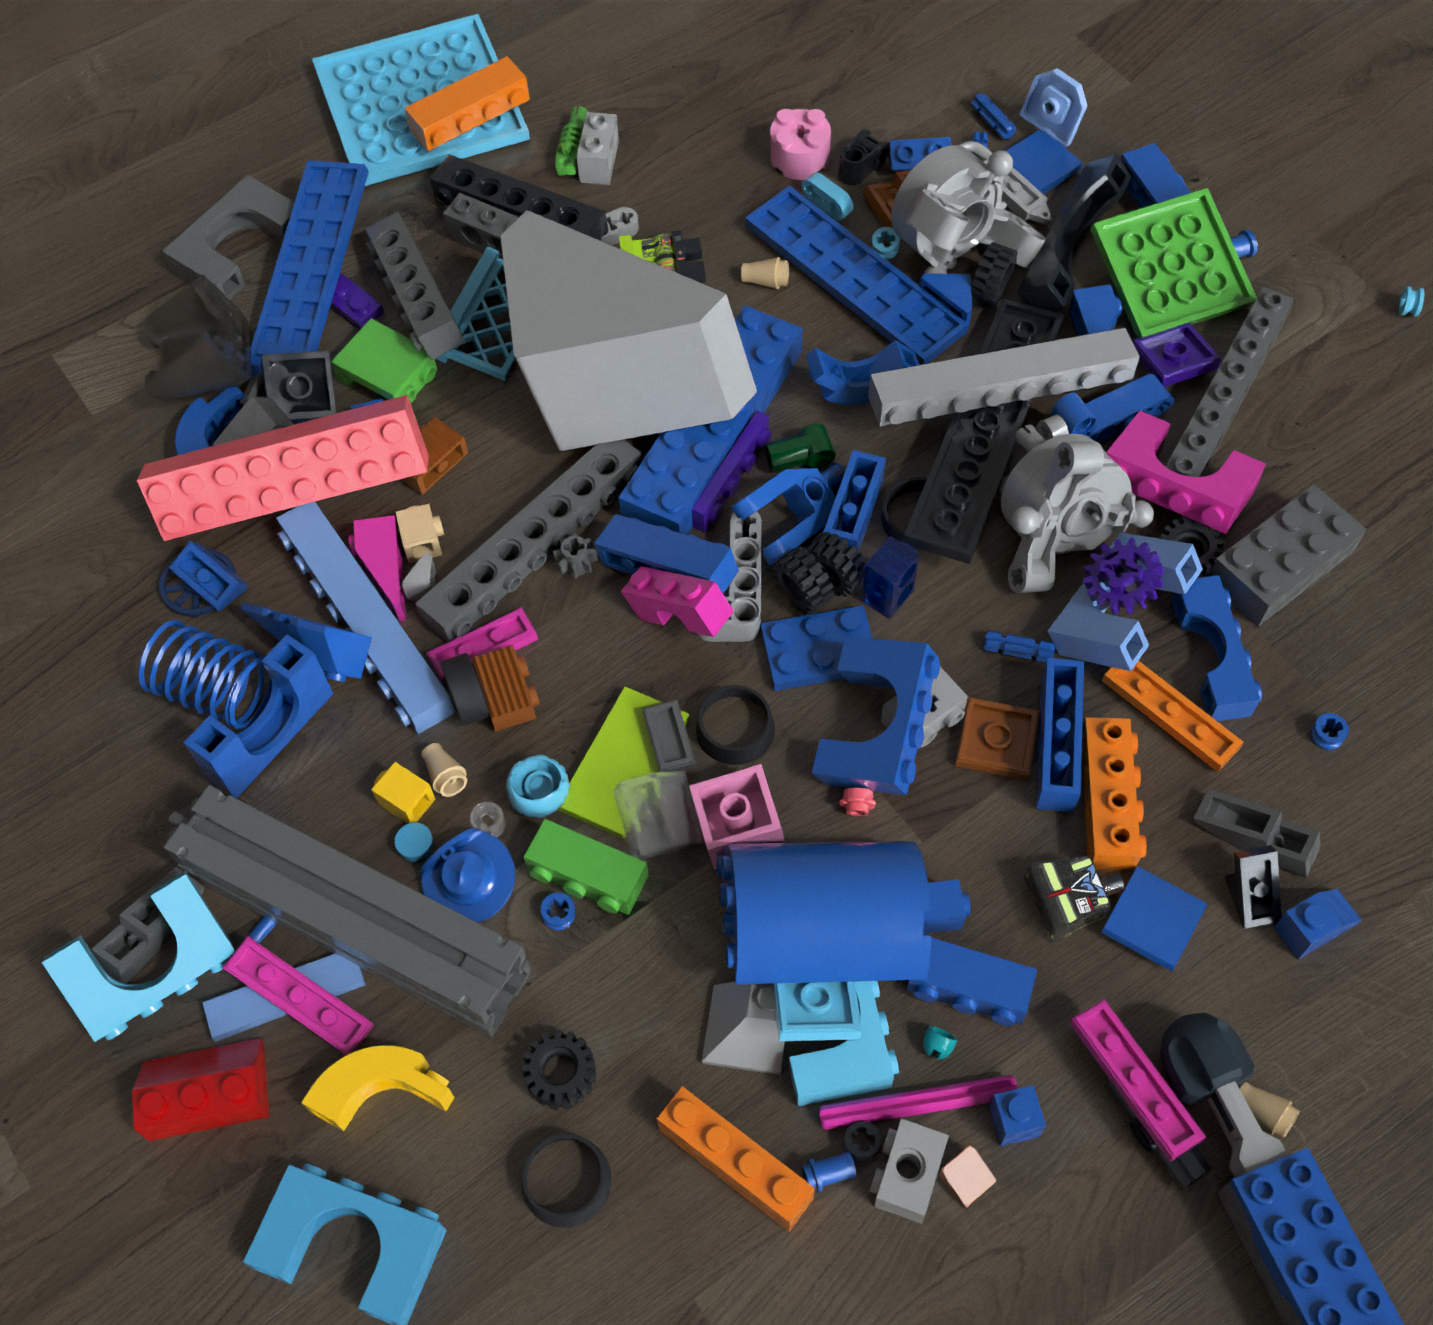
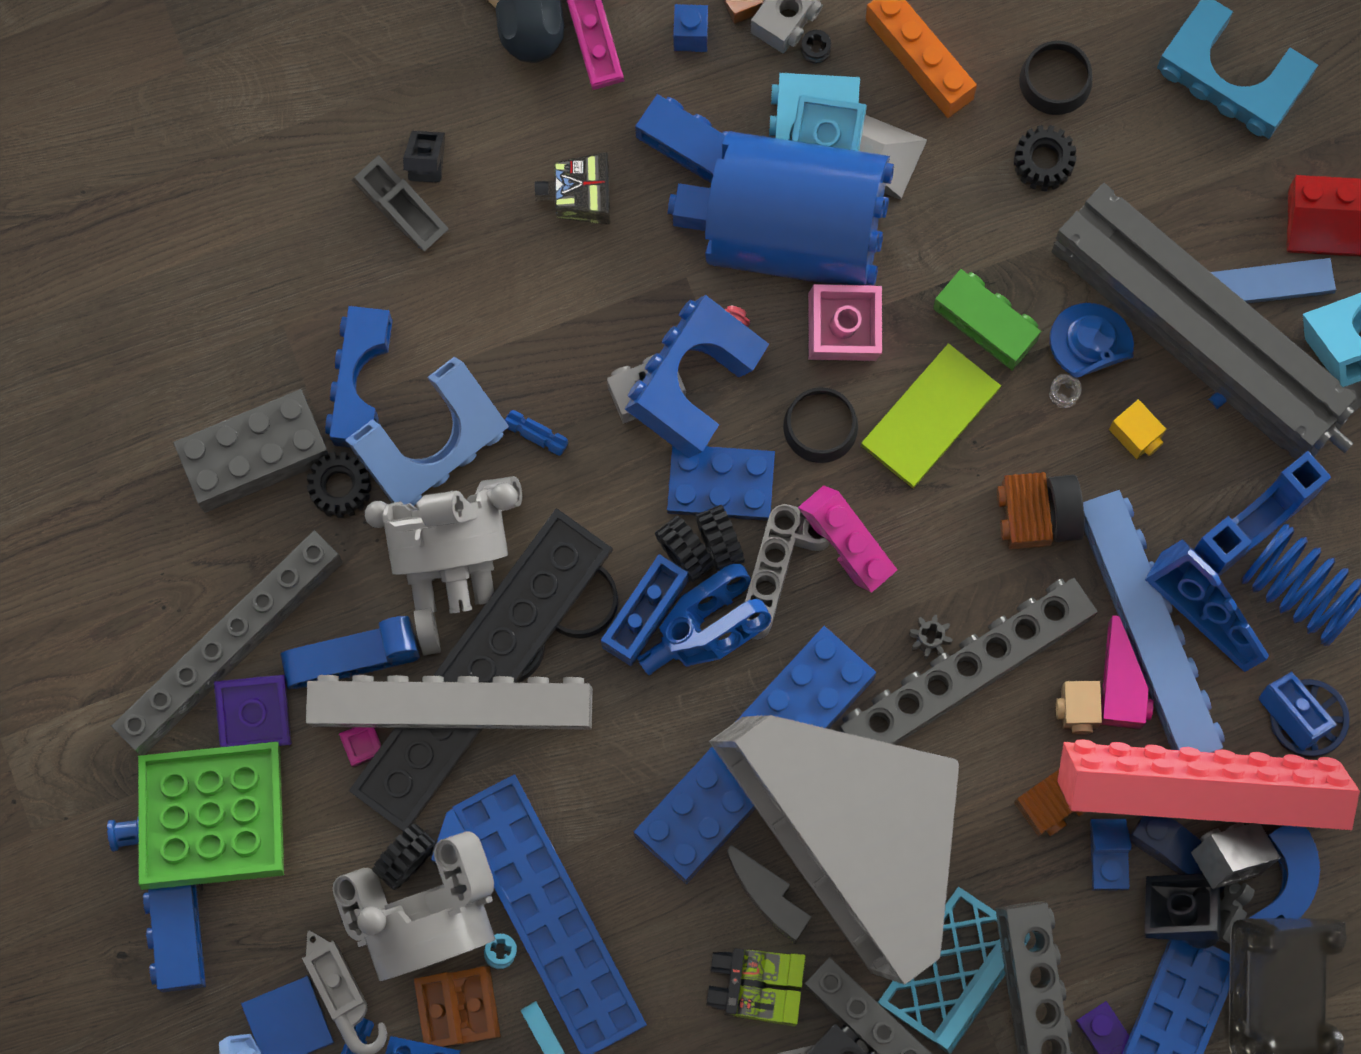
camera: 165 degrees left, 15 degrees up
(298, 996) = (1253, 269): dark pink tile -> none
(368, 1071) = (1196, 192): yellow arch -> none
(384, 362) = (1089, 927): bright green panel -> none
(414, 842) = (1134, 386): dark azure tile -> none
(420, 578) = (1085, 648): light grey slope -> none
(445, 772) = (1097, 446): tan cone -> none
(507, 630) = (1038, 570): dark pink tile -> none
(537, 786) = (1015, 400): medium azure hair -> none
(559, 900) = (1023, 284): blue bush -> none
(632, 543) = (844, 596): blue brick -> none
(658, 814) = (914, 341): clear slope -> none
(668, 737) = (886, 418): dark grey tile -> none
(727, 477) = (740, 701): dark purple plate -> none
(767, 272) = (644, 944): tan cone -> none
(809, 447) = (664, 701): dark green piece -> none
(828, 1170) = (849, 29): blue pin -> none
(850, 381) = (584, 767): blue arch -> none
(890, 577) = (636, 517): clear blue brick -> none
(914, 1102) = (758, 63): dark pink axle -> none
(939, 1040) = (724, 101): teal hinge -> none
(997, 738) = (587, 350): dark orange tile -> none
(1060, 735) = (536, 325): blue brick -> none
(1094, 309) = (316, 779): blue slope -> none
(1095, 191) = (248, 946): black arch -> none
(1111, 795) = (511, 267): orange brick -> none
(1127, 580) = (415, 432): dark purple gear -> none
(1154, 918) = (517, 155): blue slope -> none
(1175, 714) = (418, 318): orange plate -> none
(1208, 499) = (358, 575): dark pink arch -> none
(1316, 922) = (383, 116): blue slope -> none
(1336, 723) = (299, 286): blue bush -> none

